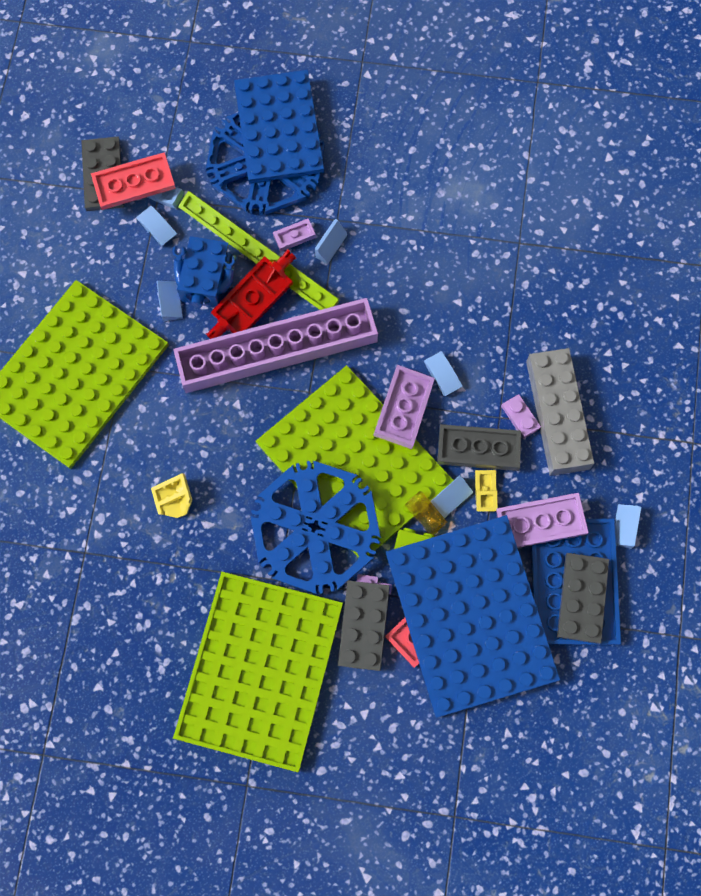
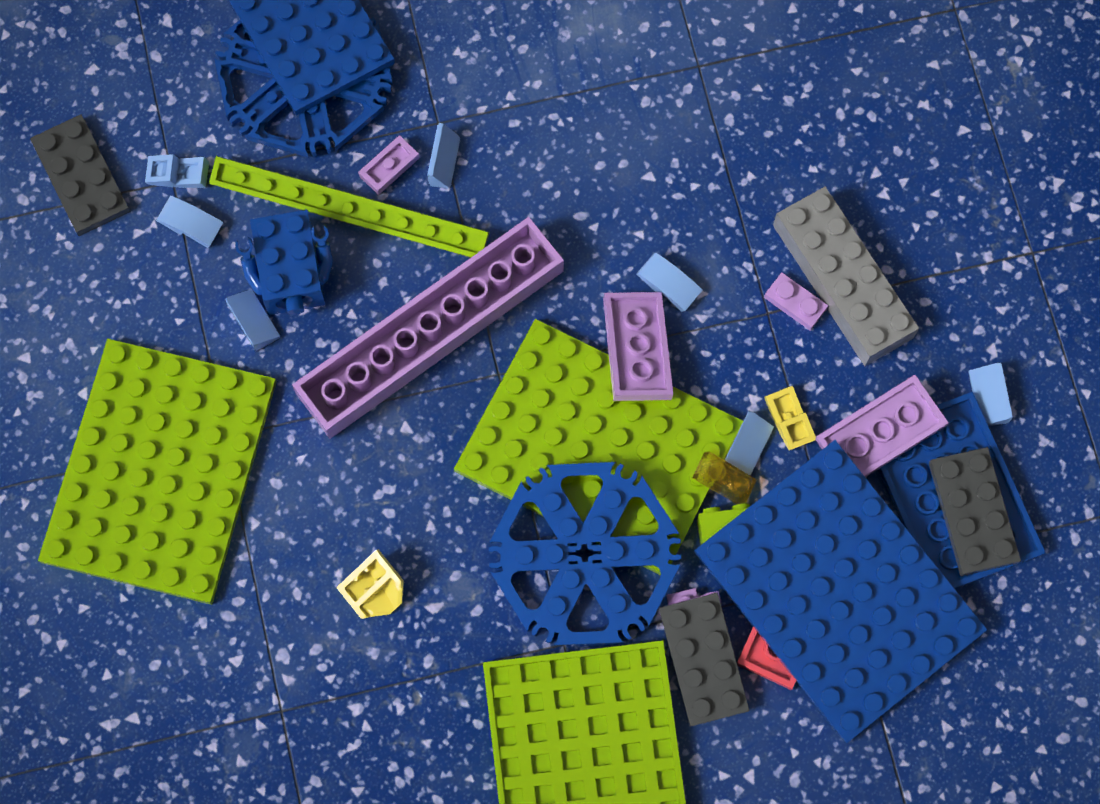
camera: 25 degrees left, 0 degrees up
(133, 181) = (133, 170): coral plate -> none
(252, 296) = (367, 272): red plate -> none
(479, 447) = (758, 363): dark grey plate -> none

